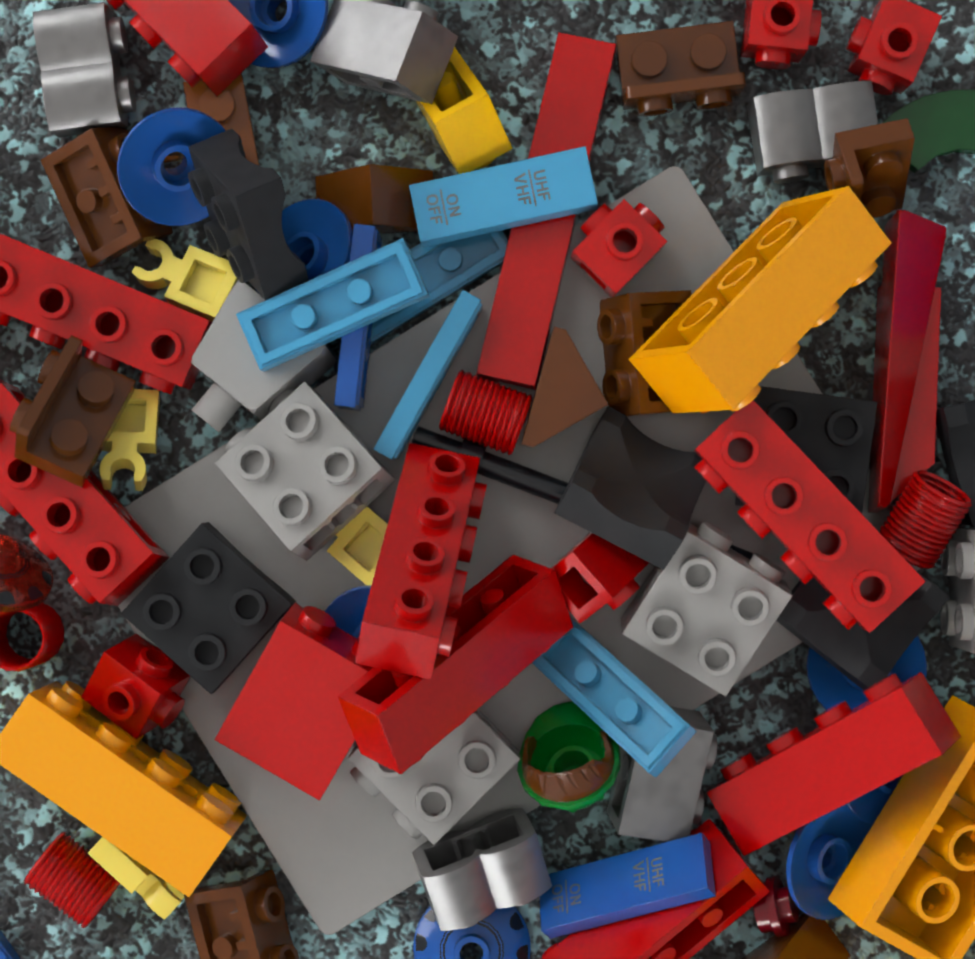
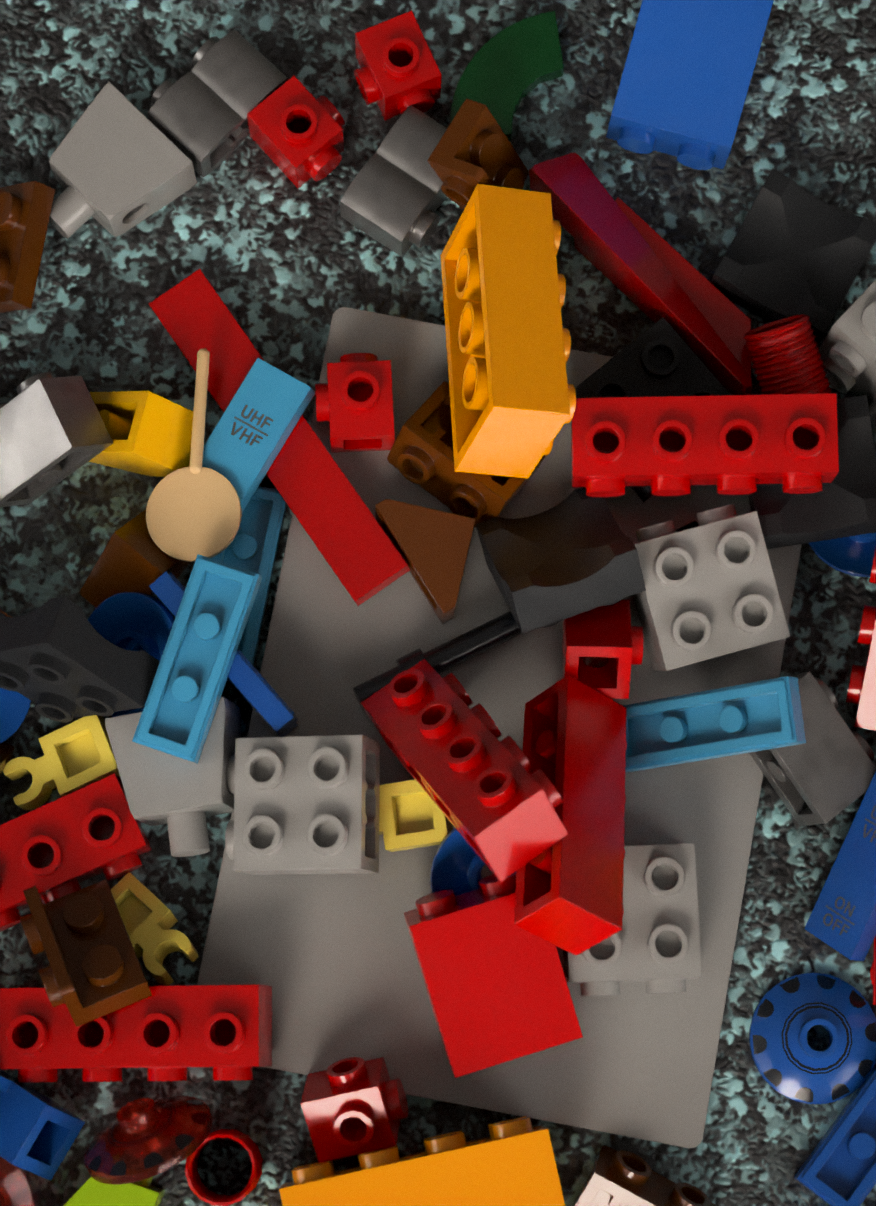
camera: 50 degrees left, 10 degrees down
(208, 607) = (342, 988): black brick -> none
(429, 376) = (322, 640): dark azure tile -> none
(439, 203) = (195, 505): none -> tan piece
(482, 869) = (757, 963): flat silver brick -> none
(485, 412) = (392, 623): red piece -> none
(567, 759) = (729, 807): green piece -> none
(679, 67) = (262, 239): reddish brown bracket -> none

